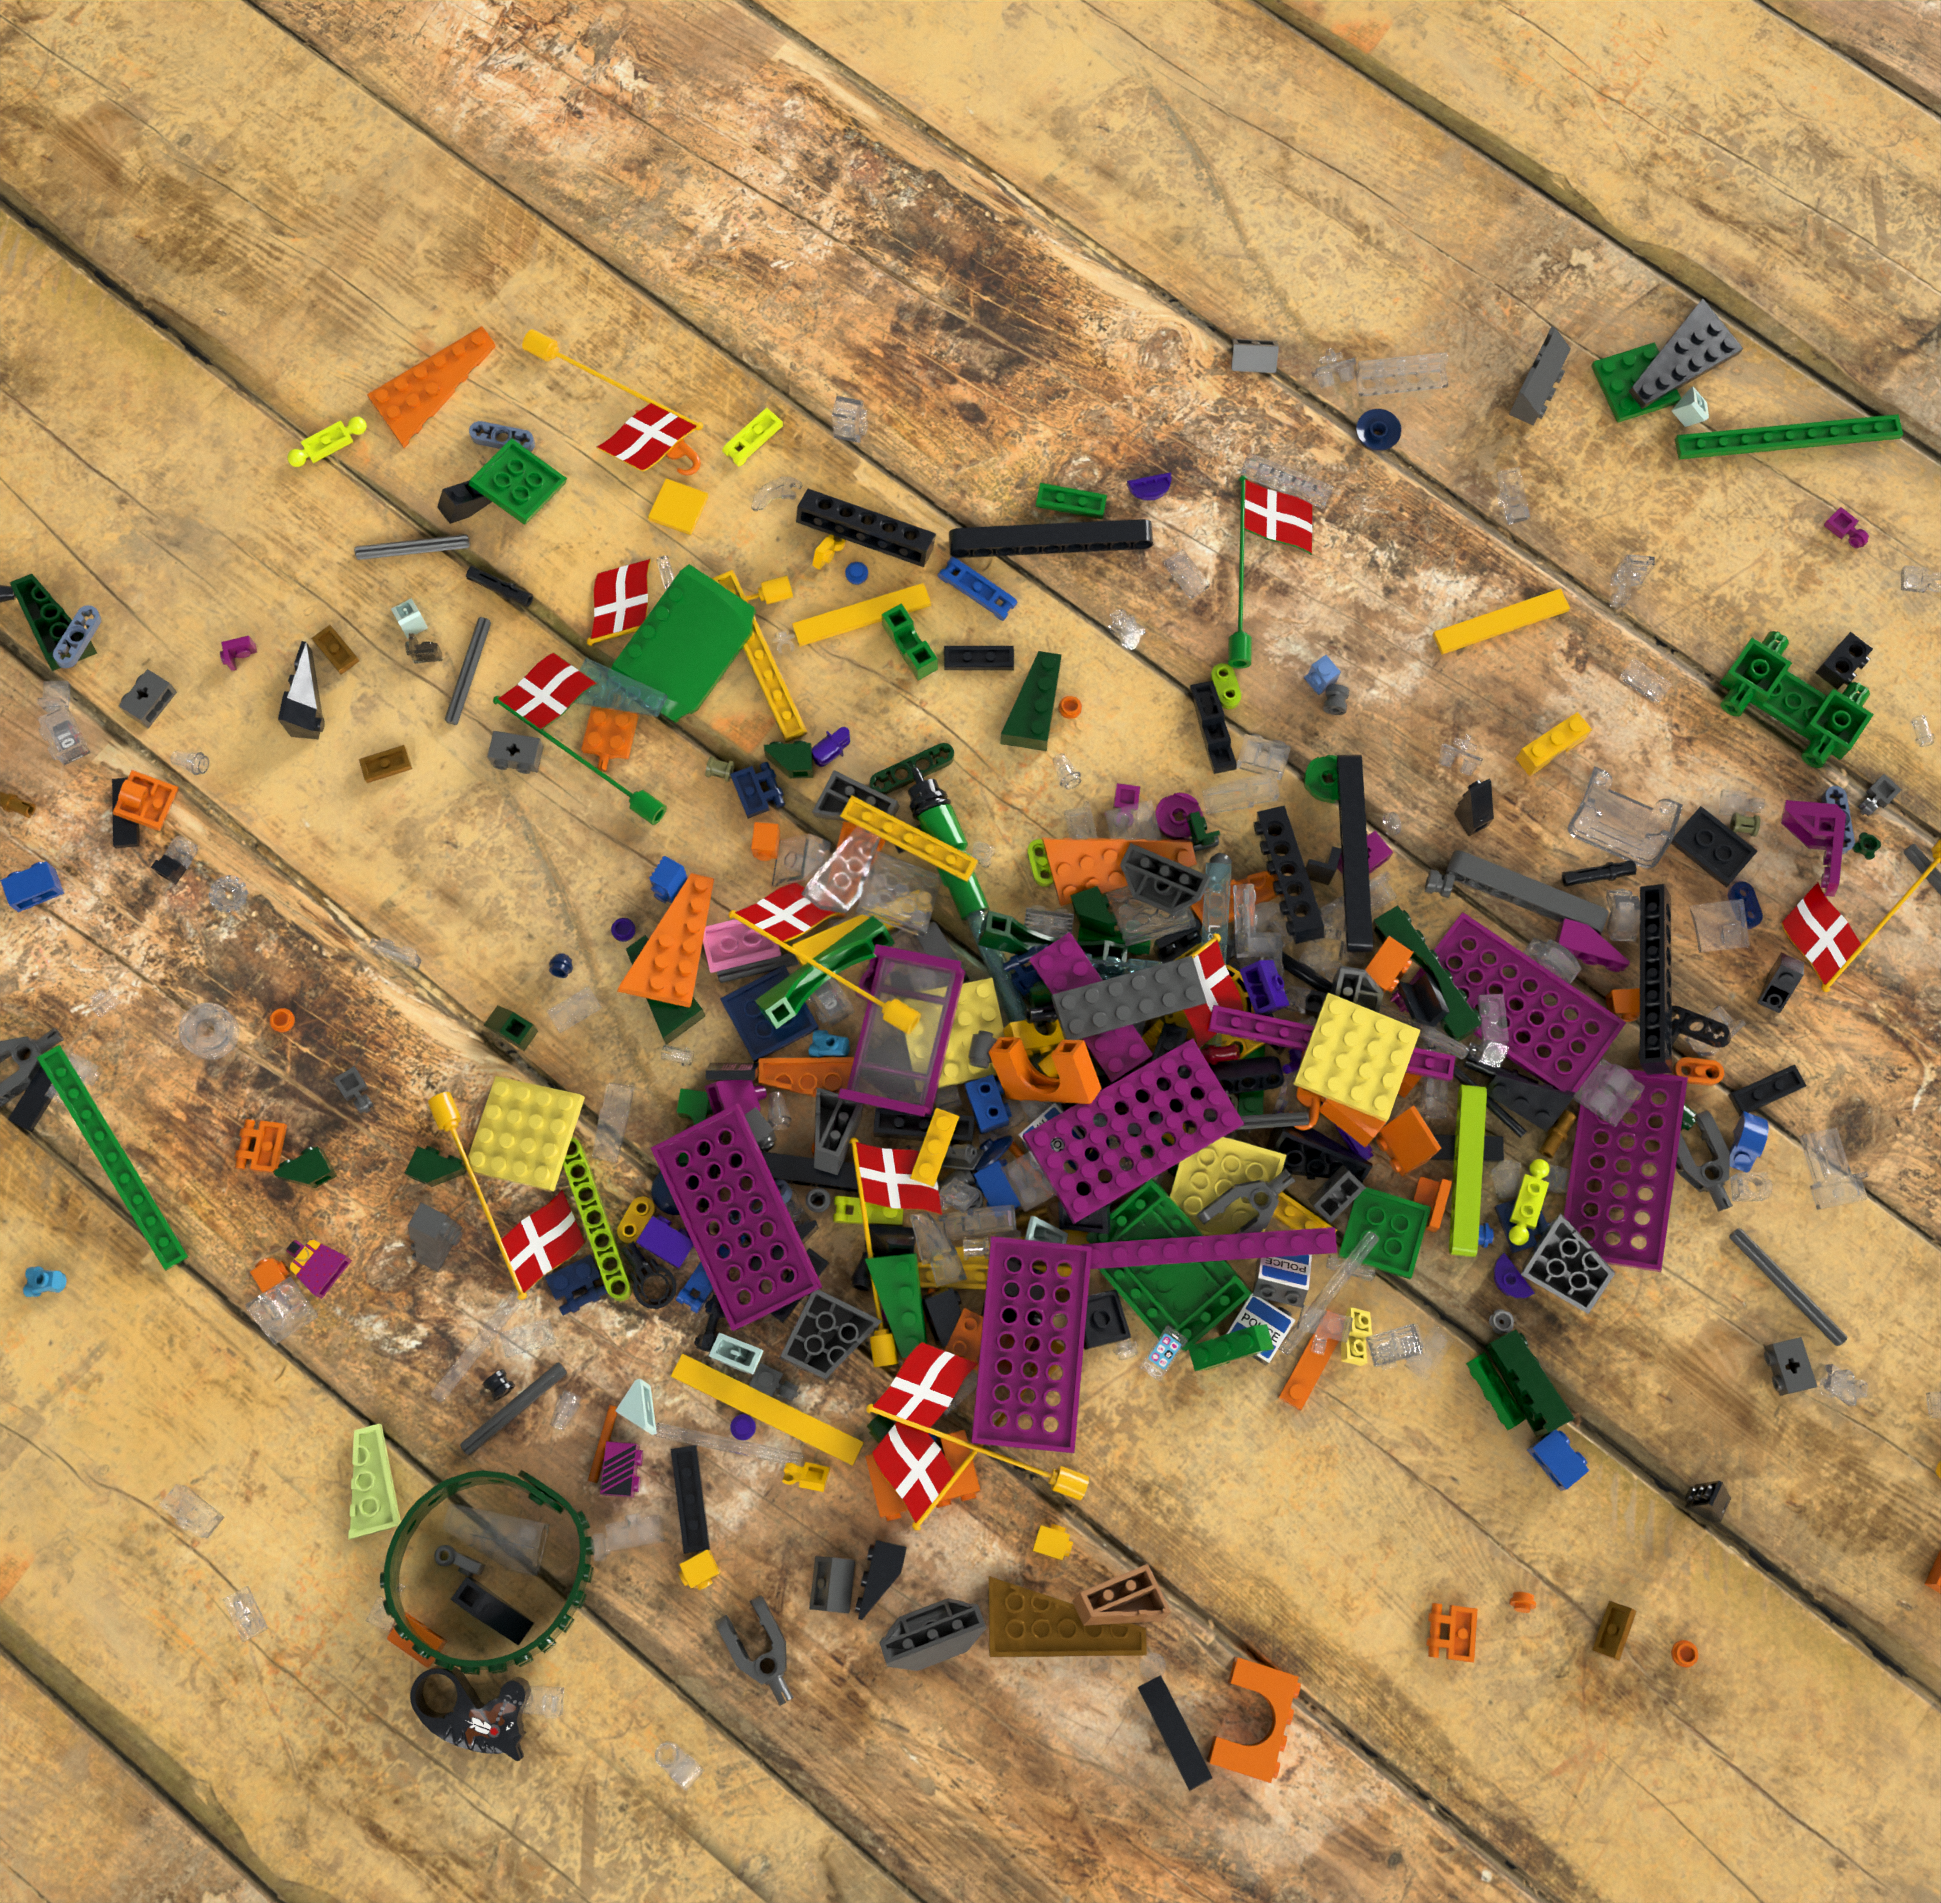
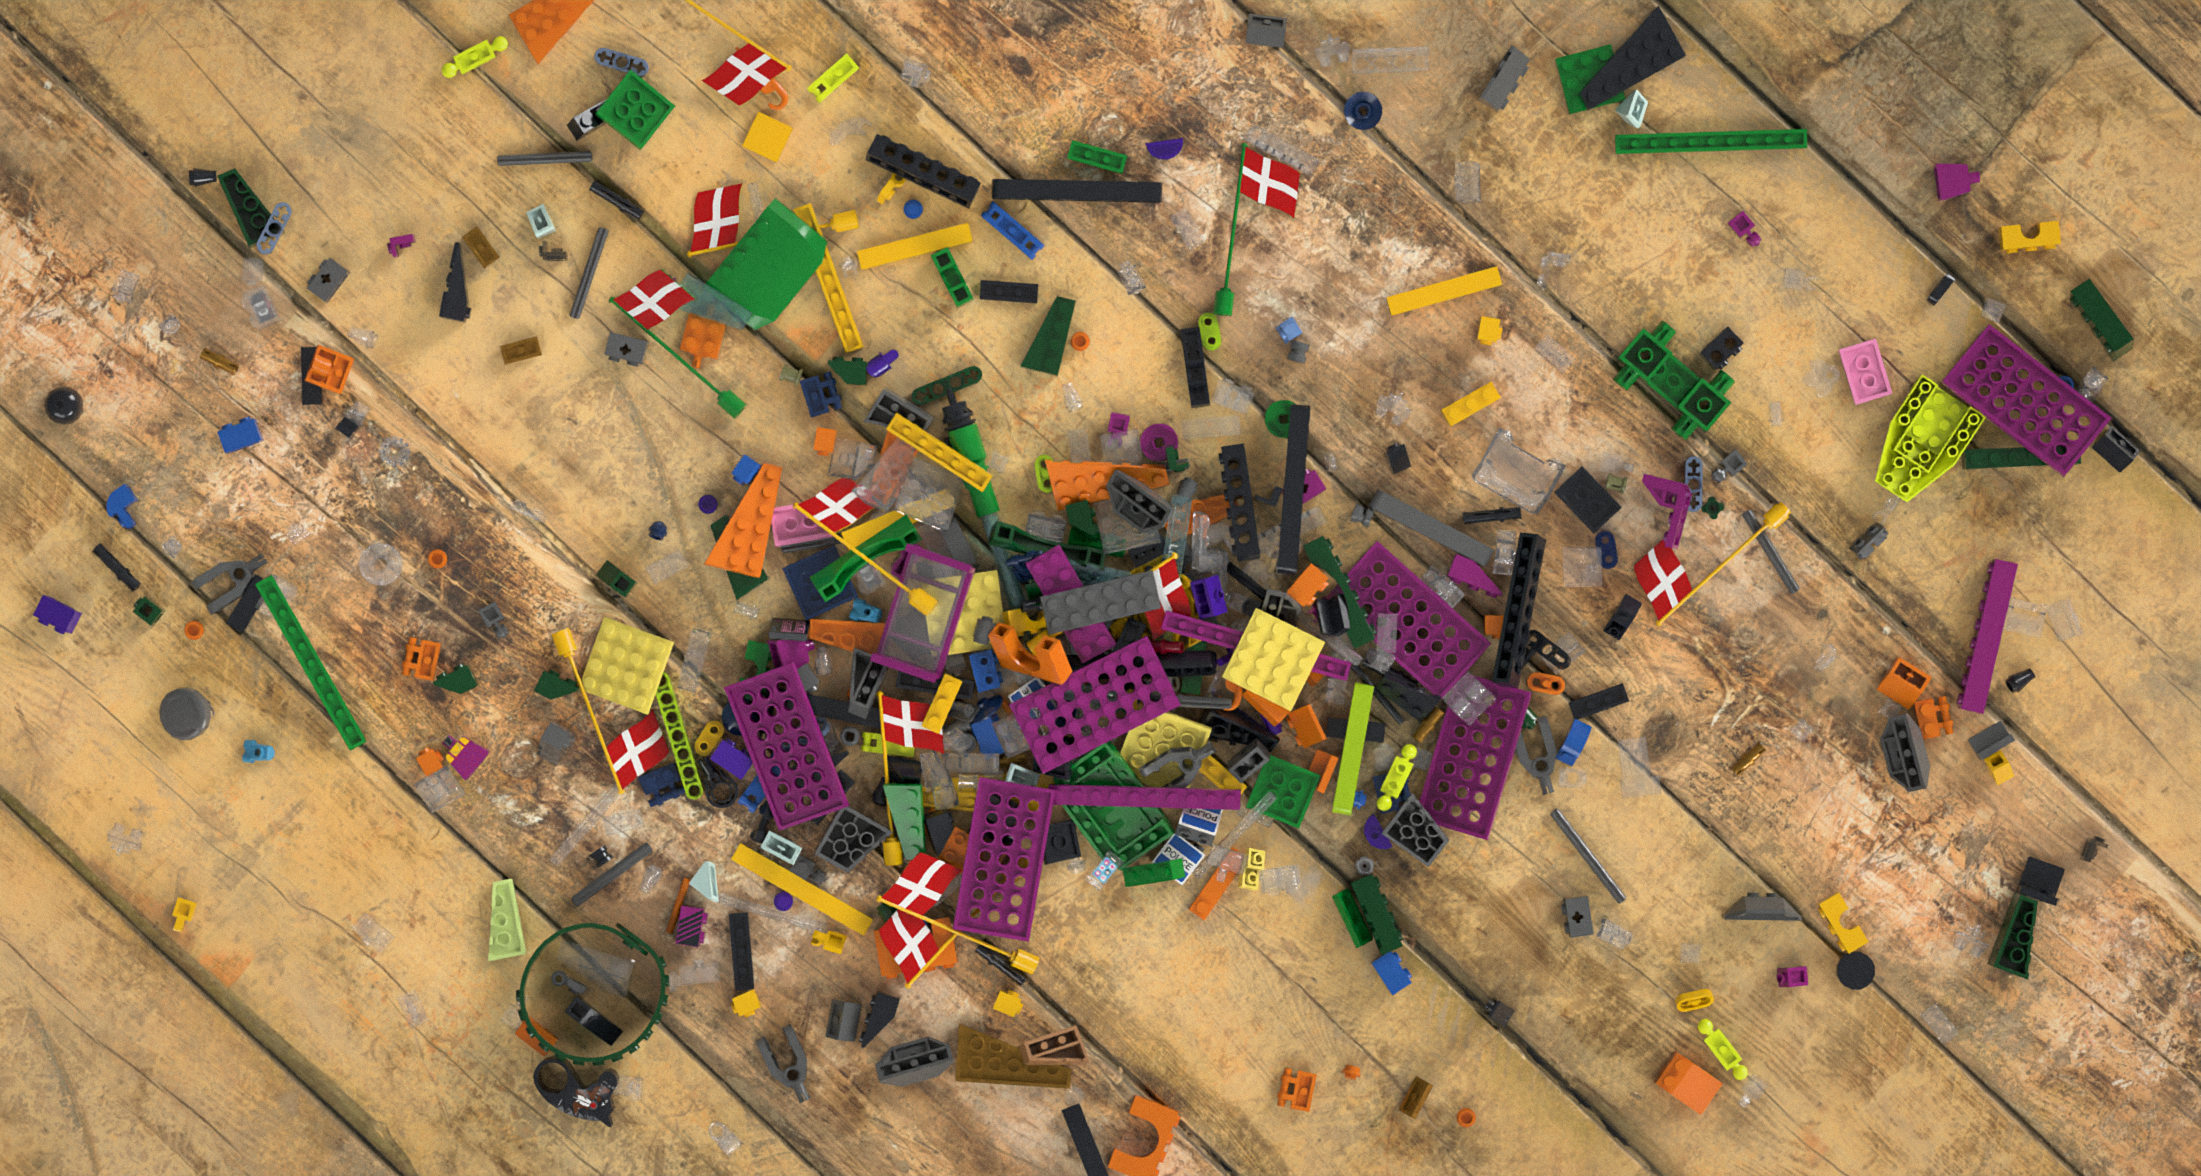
camera: 10 degrees right, 15 degrees up
(1063, 1506) = (1019, 978): none -> black pin
(1562, 659) = (1489, 330): none -> yellow brick

